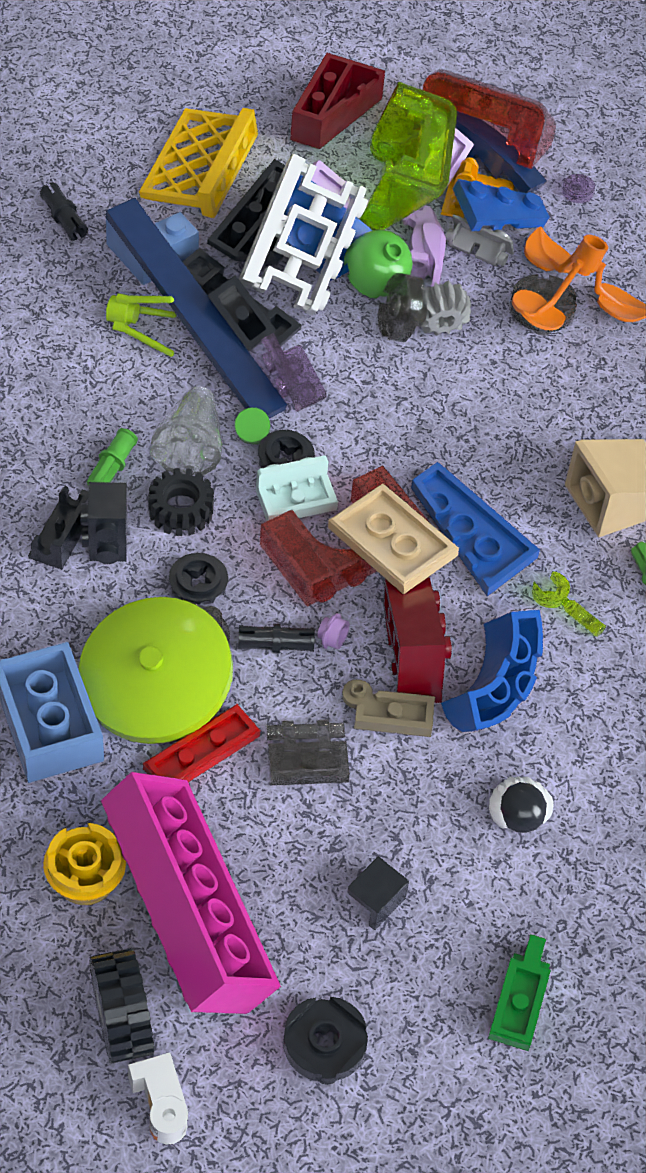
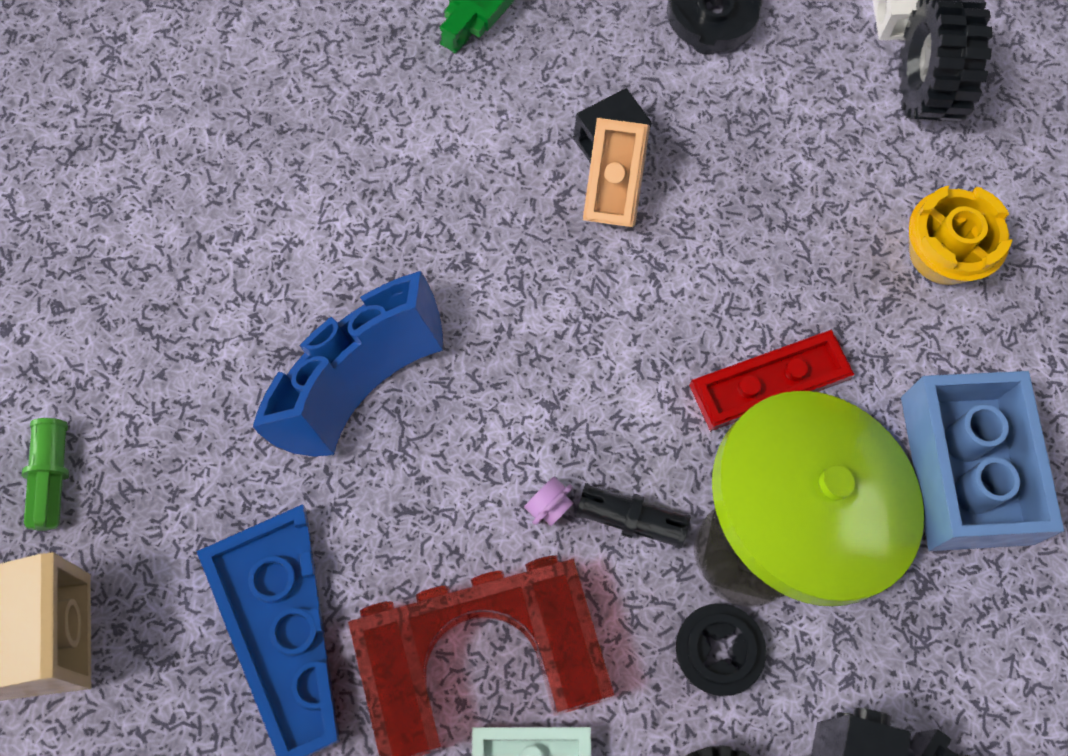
camera: 165 degrees left, 15 degrees up
(189, 895) = (844, 167): dark pink brick -> none
(307, 761) = (642, 318): clear smoke plate -> none
(360, 847) = (616, 172): none -> light nougat slope
(389, 710) = (514, 361): dark tan hinge -> none
(393, 538) = (422, 600): tan tile -> none
(417, 638) = (438, 455): dark red wedge -> none
(520, 804) = (396, 196): black hair -> none
(559, 598) = (193, 459): clear neon green piece -> none

